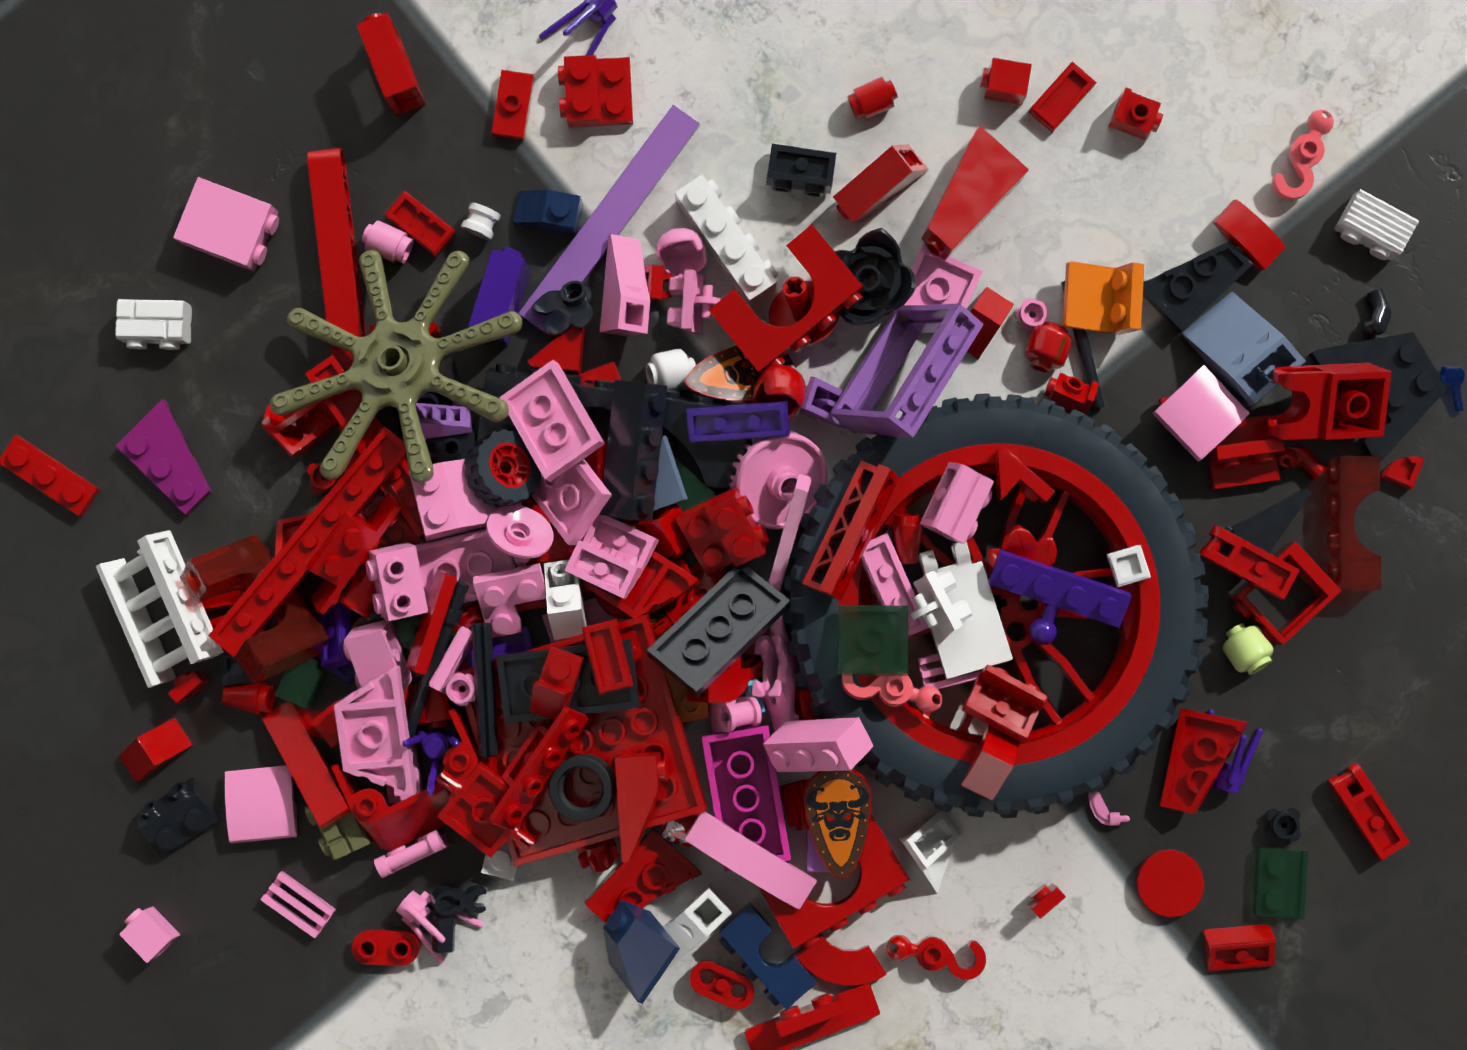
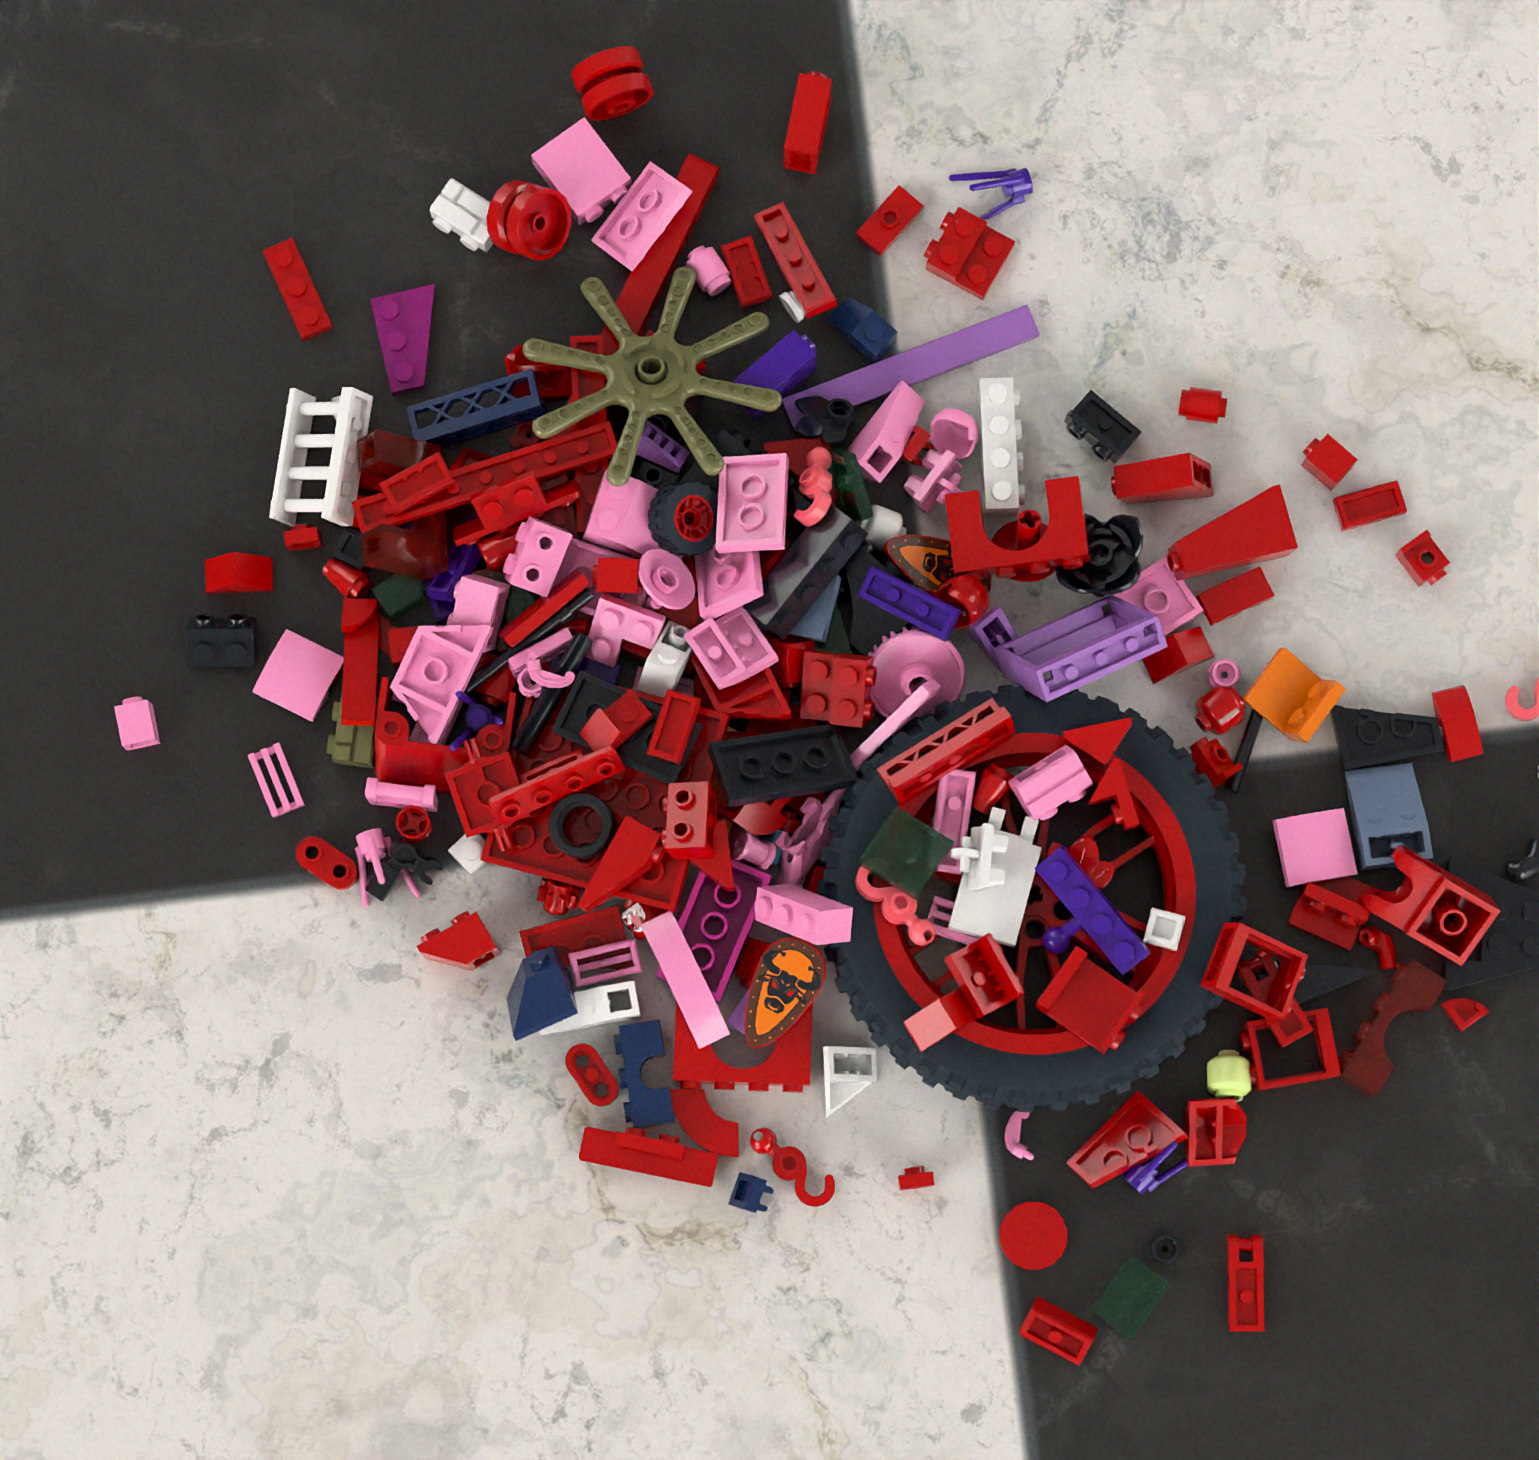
camera: 30 degrees right, 5 degrees down
(202, 132) = (612, 83): none -> red wheel
(206, 294) = (529, 220): none -> red wheel
(253, 585) = (417, 483): none -> red plate
(275, 722) = (357, 612): none -> red tile
(278, 492) = (485, 420): none -> dark blue fence
(301, 231) = (641, 216): none -> bright pink plate
(433, 870) = (410, 819): none -> red wheel
(455, 188) = (795, 260): none -> red tile
(472, 681) = (546, 678): none -> bright pink piece
(476, 556) = (617, 576): none -> red brick
(546, 947) = (461, 945): none -> red slope
(596, 371) = (815, 485): none -> coral piece
(621, 350) = (850, 483): none -> clear green plate
(672, 728) = (690, 820): none -> brick
(692, 863) = (576, 969): none -> bright pink tile
(711, 743) = (720, 867): none -> red slope
(915, 1000) = (748, 1193): none -> dark blue tile
(976, 439) = (1098, 740): none -> red slope
(1000, 242) = (1235, 596): none -> red slope
(1108, 667) = (1091, 1002): none -> red panel
(1198, 559) = (1226, 957): none -> red window
(1263, 703) = (1213, 1131): none -> red slope

